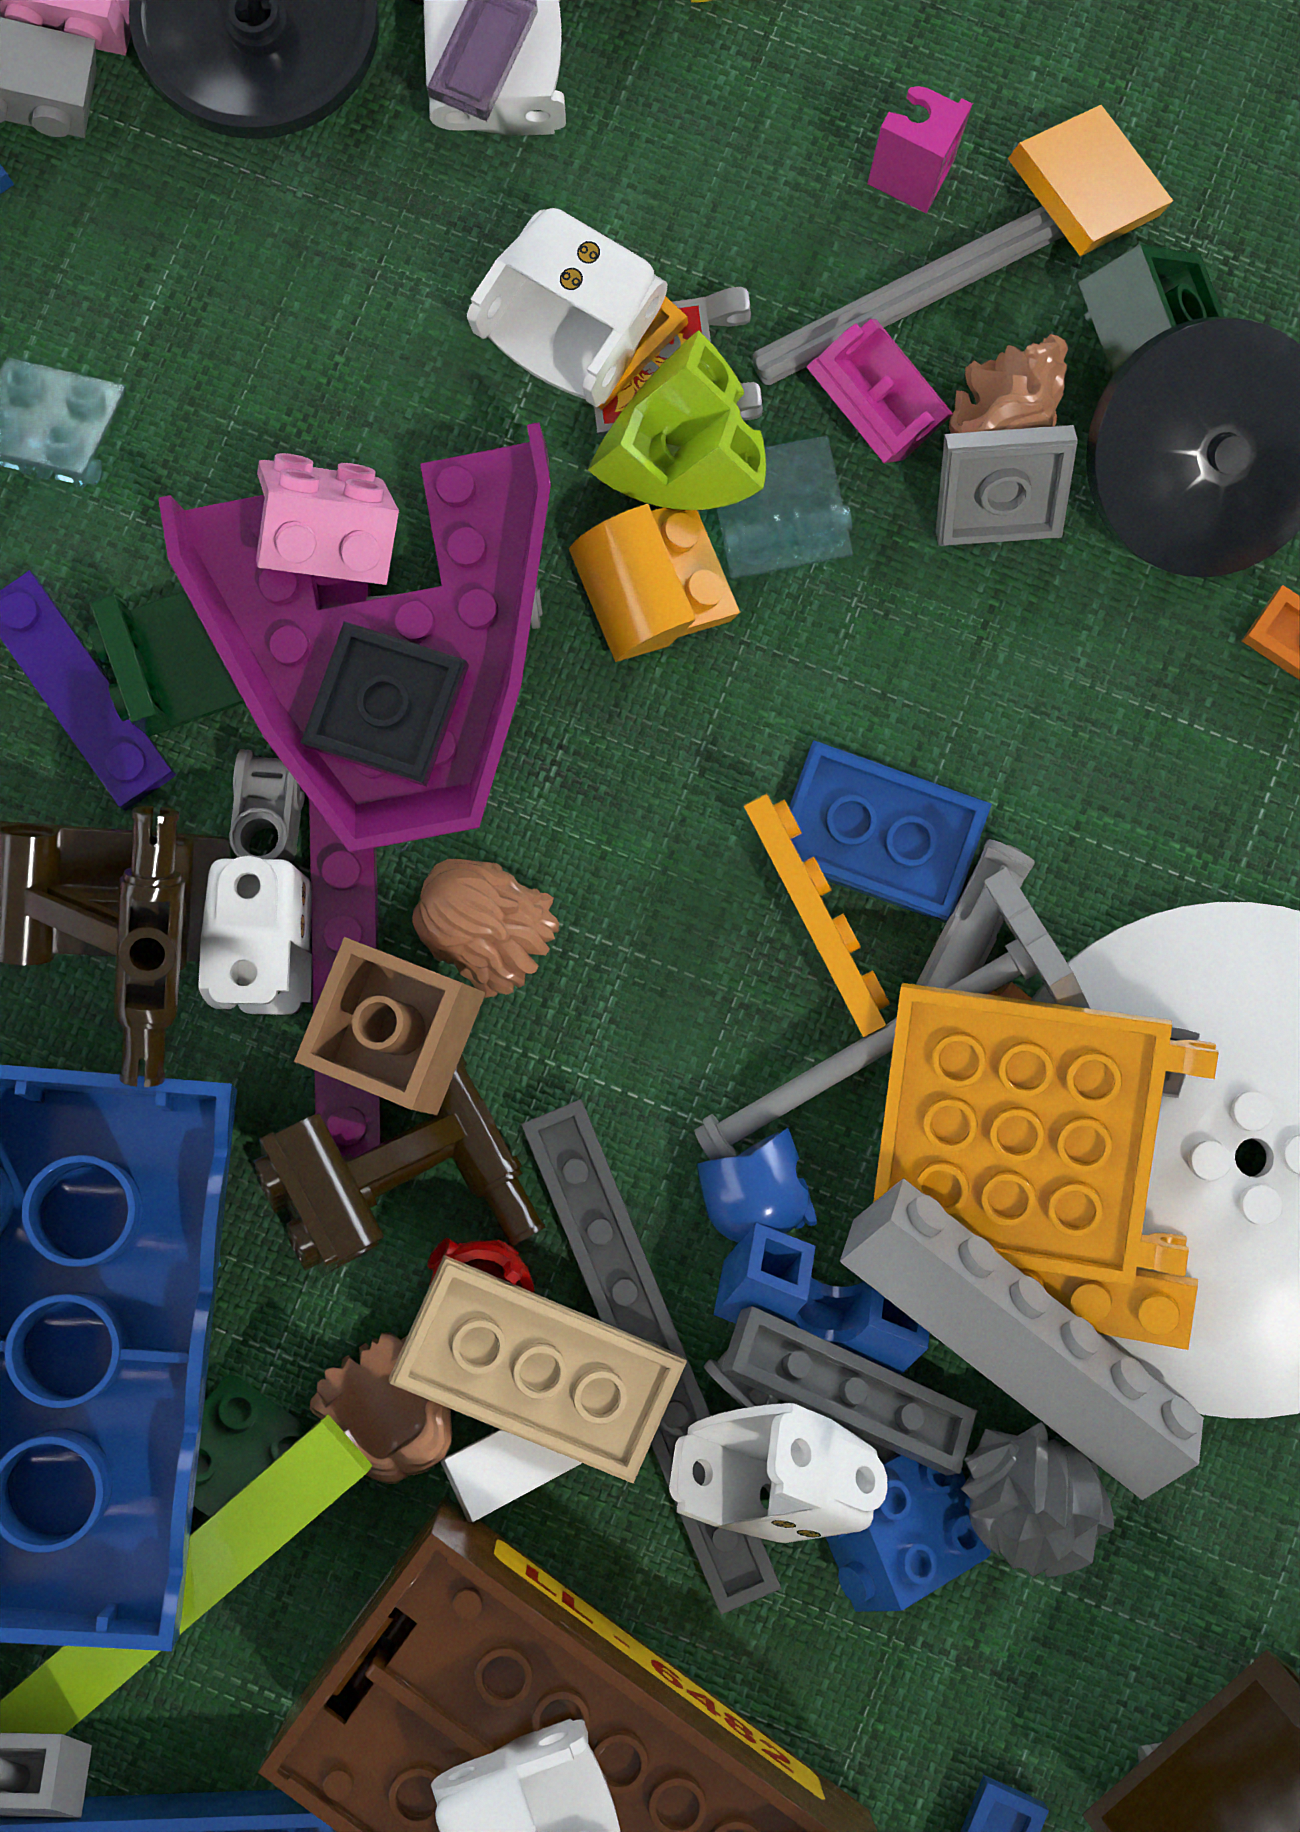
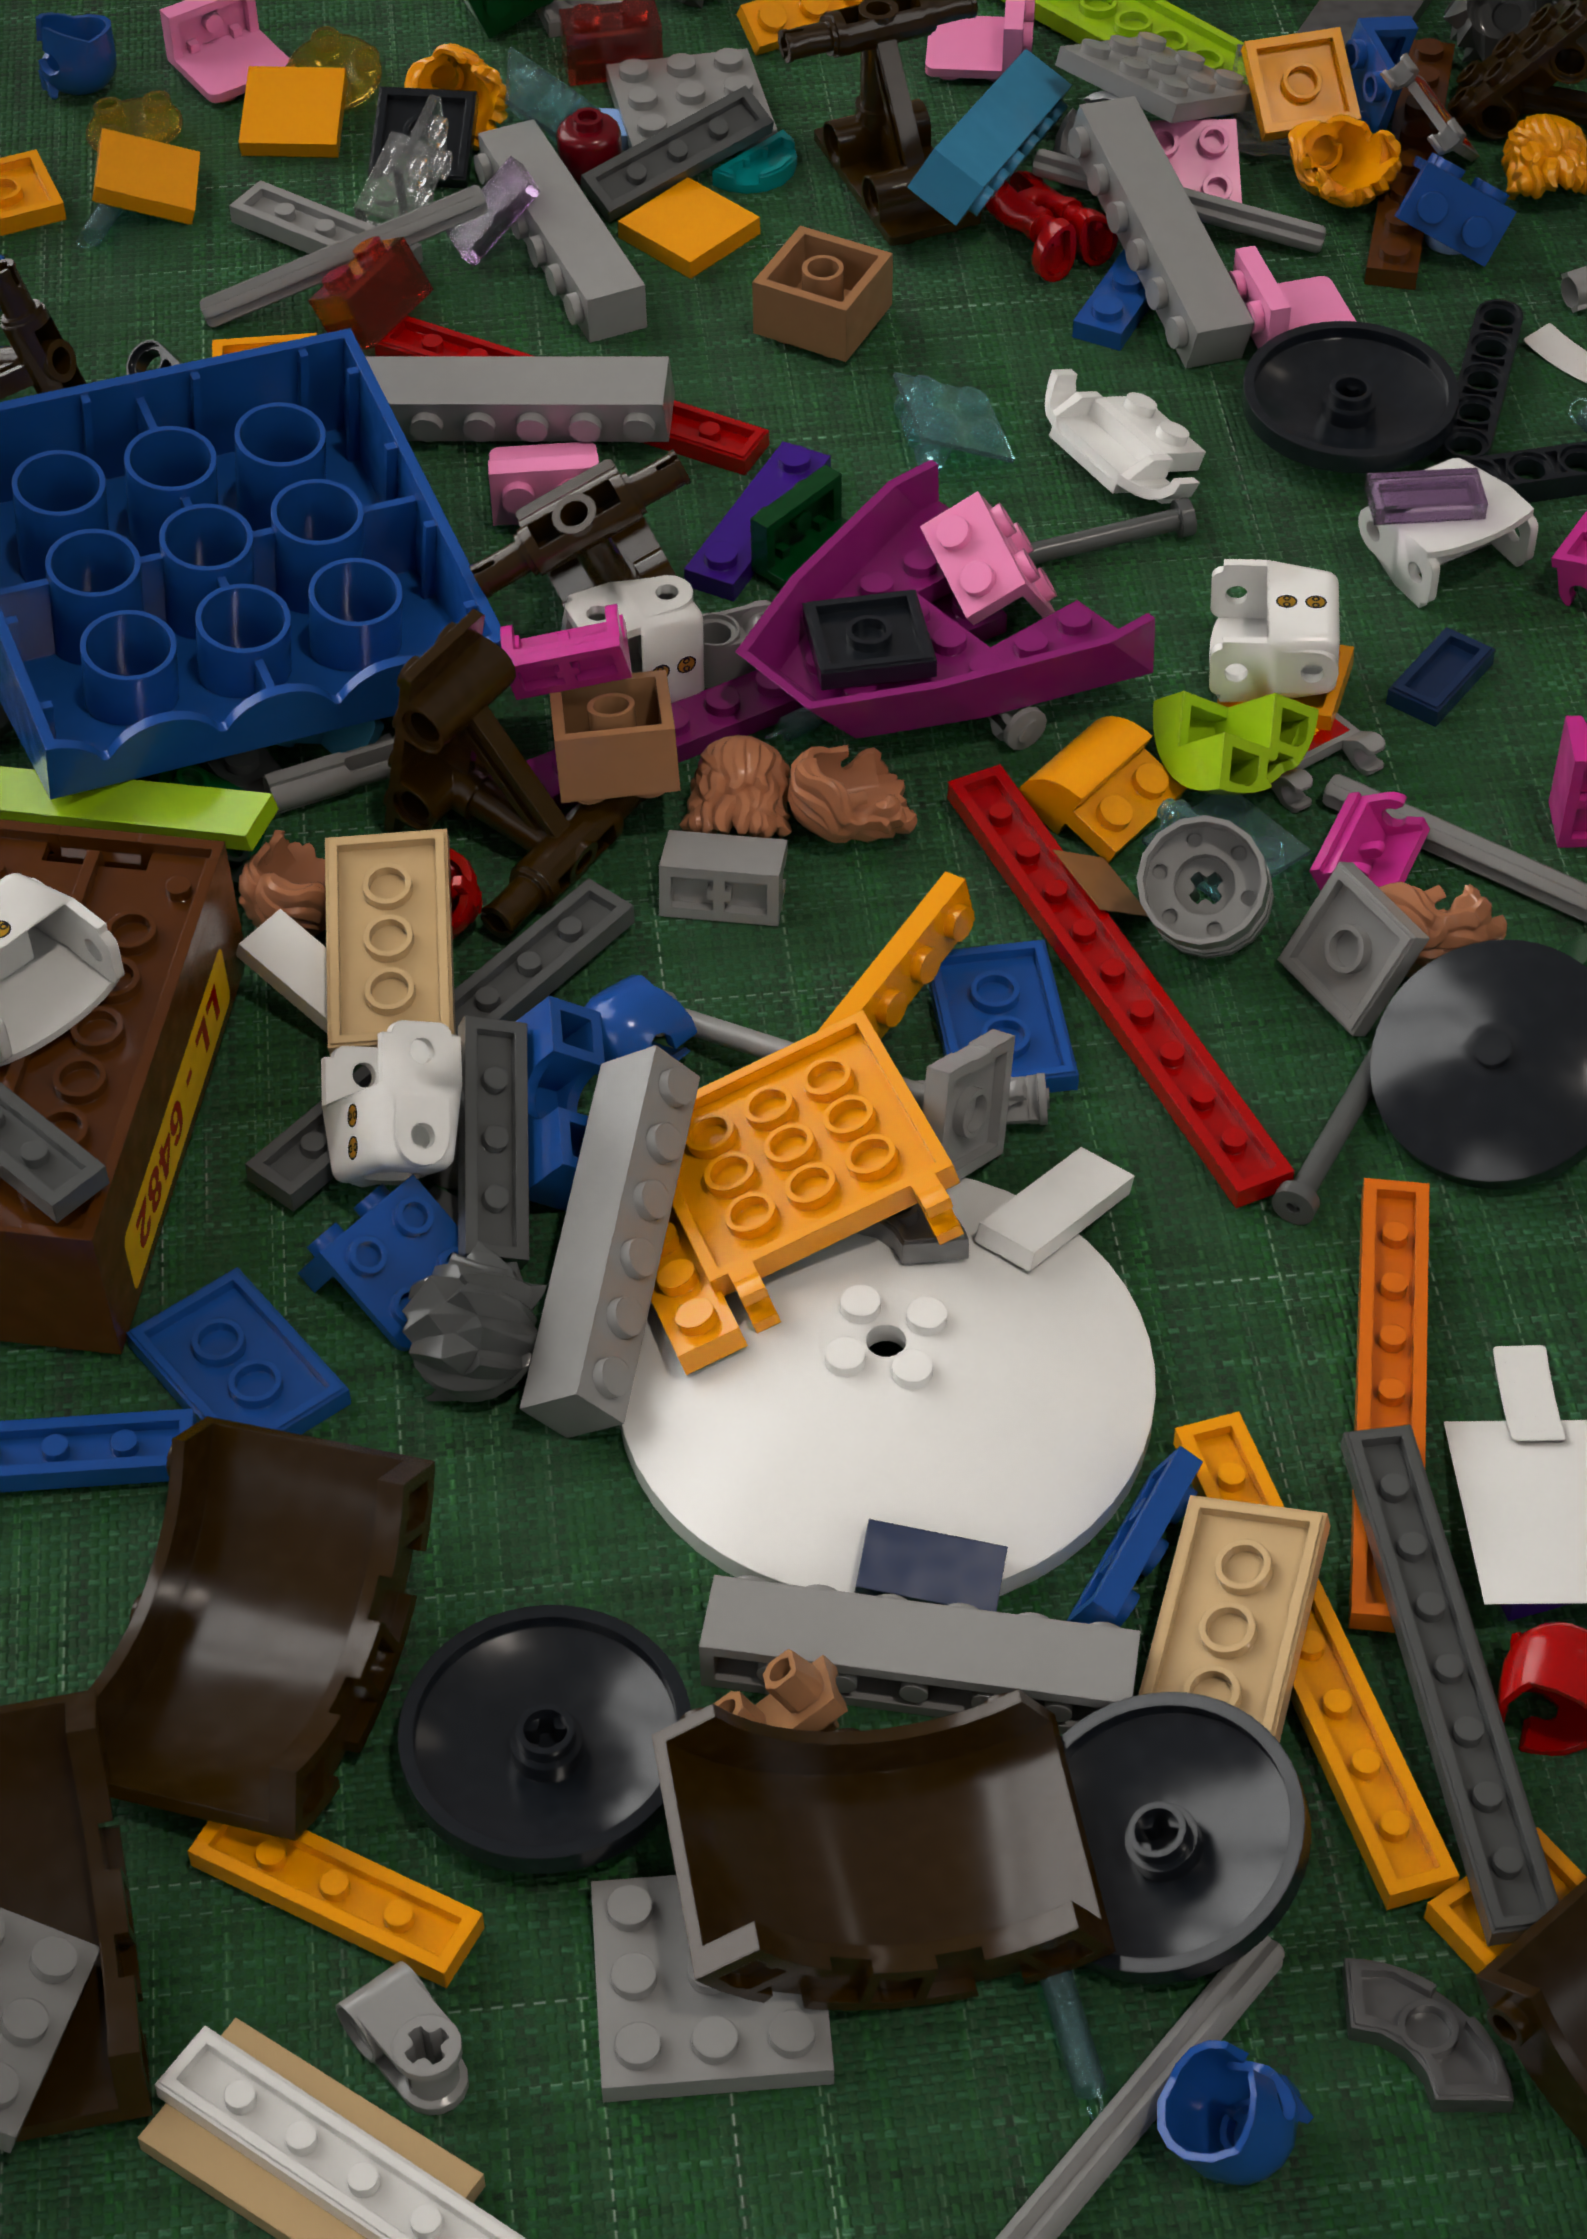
camera: 65 degrees right, 35 degrees down
(176, 272) = (1122, 440): none -> white plate
(234, 1300) = (329, 775): none -> light grey piece
(293, 1038) = (569, 656): none -> dark pink hinge
(318, 283) = (1179, 518): none -> dark grey bar
(551, 822) = (848, 801): none -> nougat hair
(579, 991) = (722, 877): none -> light grey hinge
(665, 176) = (1440, 676): none -> dark blue tile
(776, 650) = (1101, 883): none -> medium nougat sticker
(882, 576) = (1209, 852): none -> light grey wheel
(893, 706) = (1121, 989): none -> red plate
(937, 1711) = (238, 1359): none -> blue tile
(1152, 919) = (1054, 1209): none -> white tile
(1159, 608) = (1298, 1198): none -> dark grey bar

